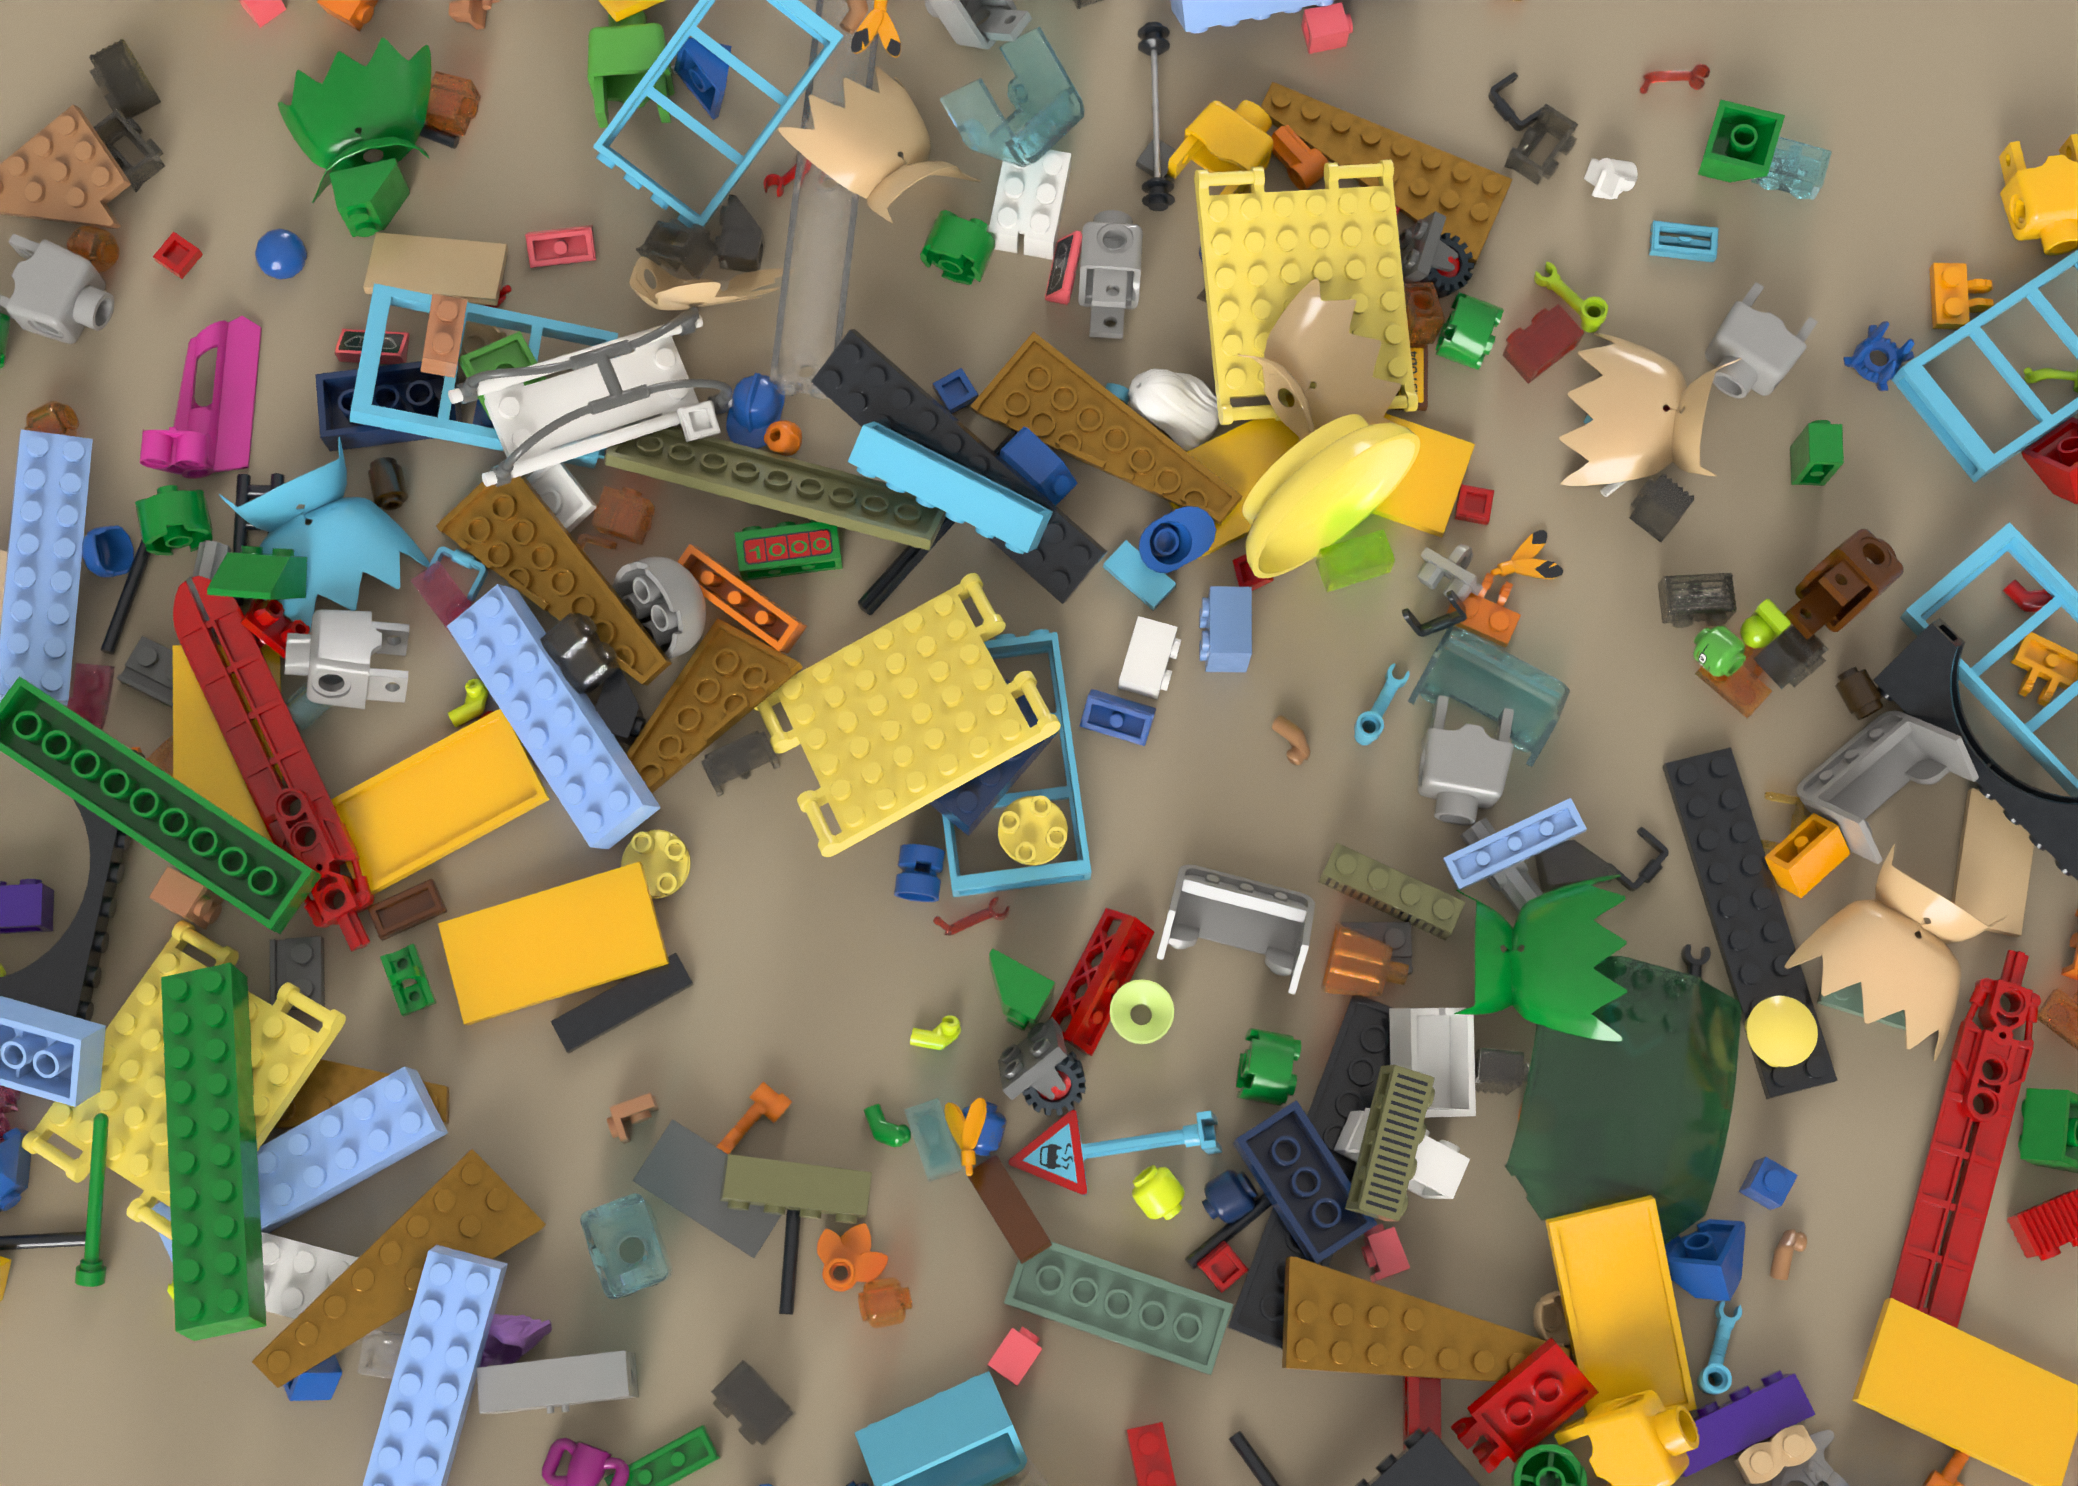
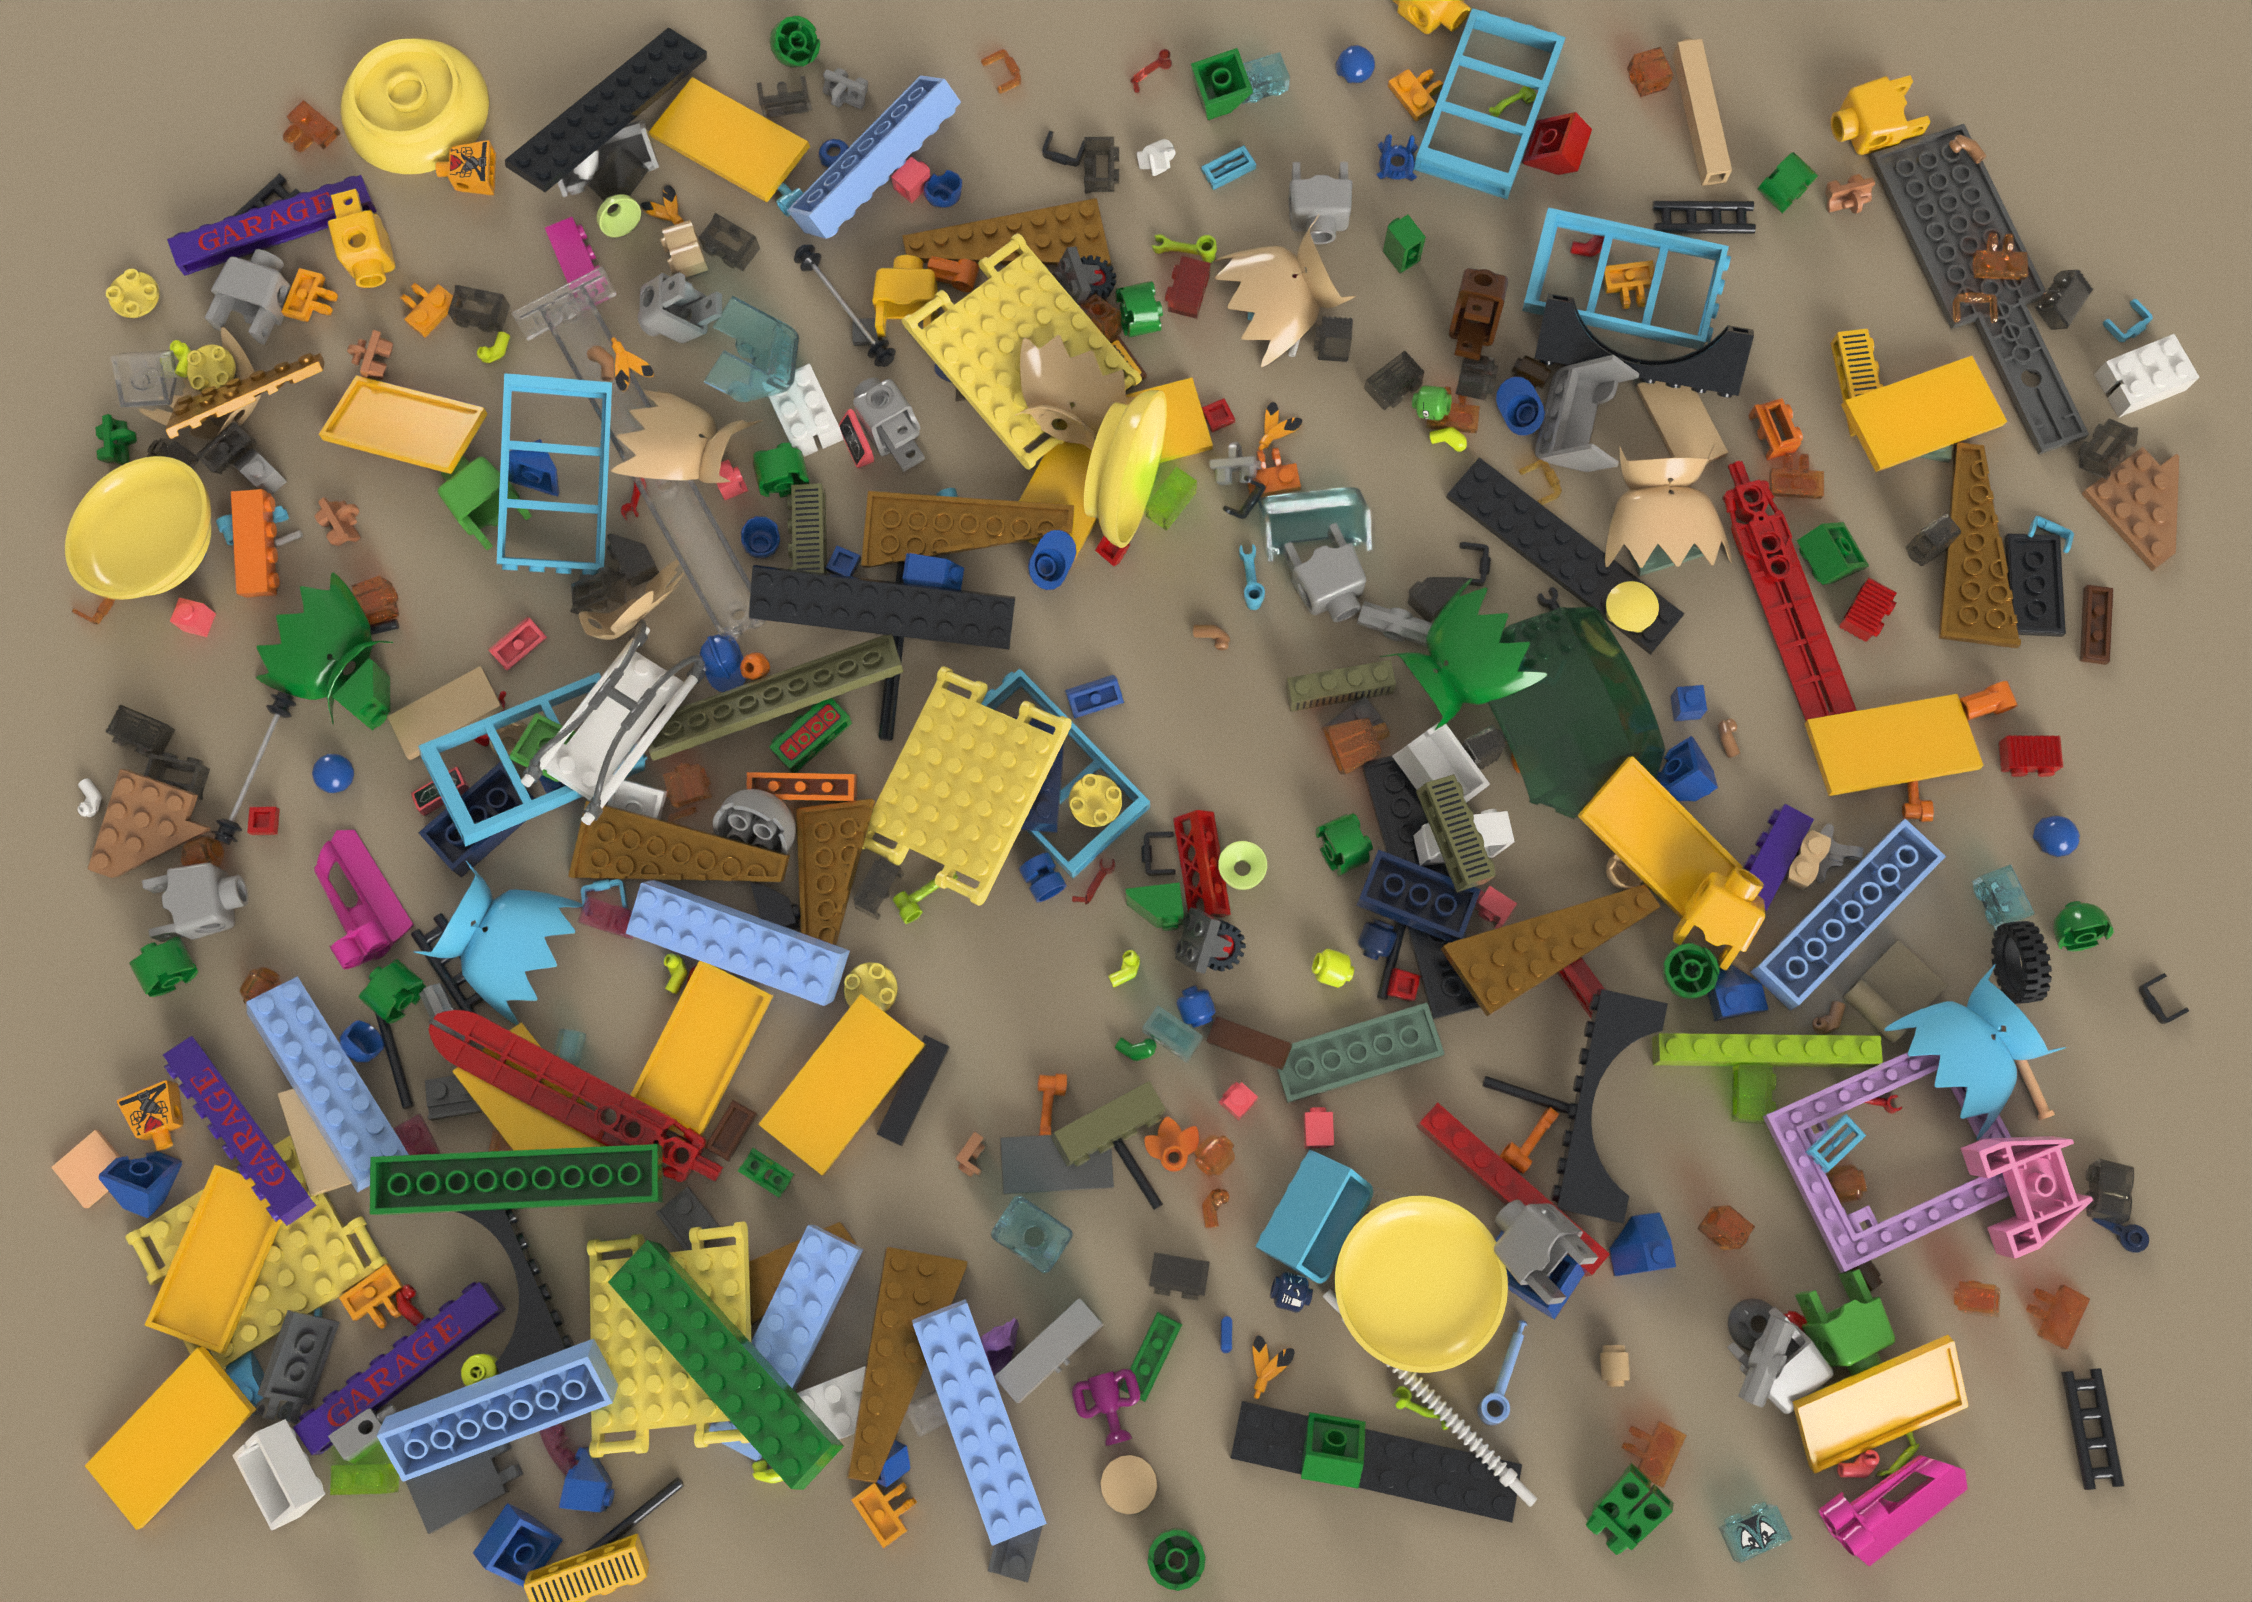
camera: 30 degrees left, 0 degrees up
(29, 119) = (92, 800): none -> white arm
(91, 1269) = (694, 1500): green piece -> none
(187, 898) = (583, 1223): nougat brick -> none
(261, 574) = (480, 984): green slope -> none
(265, 1422) = (880, 1514): none -> light orange hinge
(270, 626) = (512, 1014): red hips -> none
(275, 150) = (279, 709): none -> black axle
(339, 657) = (573, 1002): light grey piece -> none
(387, 483) = (516, 871): dark brown brick -> none
(443, 335) = (490, 747): nougat brick -> none
(580, 653) = (726, 889): clear smoke brick -> none
(698, 421) = (693, 692): white tile -> none
(758, 803) = (908, 904): none -> lime brick
(843, 1353) = (1212, 1204): none -> clear orange arm
(887, 304) = (760, 537): none -> blue hair
(904, 221) = (736, 486): none -> coral brick
(944, 330) = (808, 528): none -> olive brick
(949, 487) = (887, 623): medium azure brick -> none
(952, 1261) = (1238, 1100): none -> coral brick
(966, 1131) = (1191, 1013): light orange piece -> none
(1050, 926) = (1146, 853): none -> black piece
(1060, 1155) = (1256, 989): medium azure piece -> none
(1132, 572) = (1039, 600): medium azure tile -> none
(1148, 658) = (1087, 645): white brick -> none
(1177, 405) = (990, 477): white piece -> none
(1228, 629) = (1124, 594): medium blue piece -> none
(1242, 916) = (1260, 764): light grey windscreen -> none
(1351, 61) = (943, 190): none -> blue hair
(1514, 844) = (1395, 604): light blue piece -> none
(1524, 1406) = (1644, 937): red tile -> none
(1715, 702) = (1451, 437): none -> neon yellow arm
(1716, 1360) = (1737, 835): medium azure brick -> none
(1763, 625) = (1447, 368): lime tile -> none
(1807, 855) = (1571, 490): light orange brick -> none
(1817, 722) = (1520, 406): none -> blue piece
(1909, 220) = (1355, 64): none -> blue hair

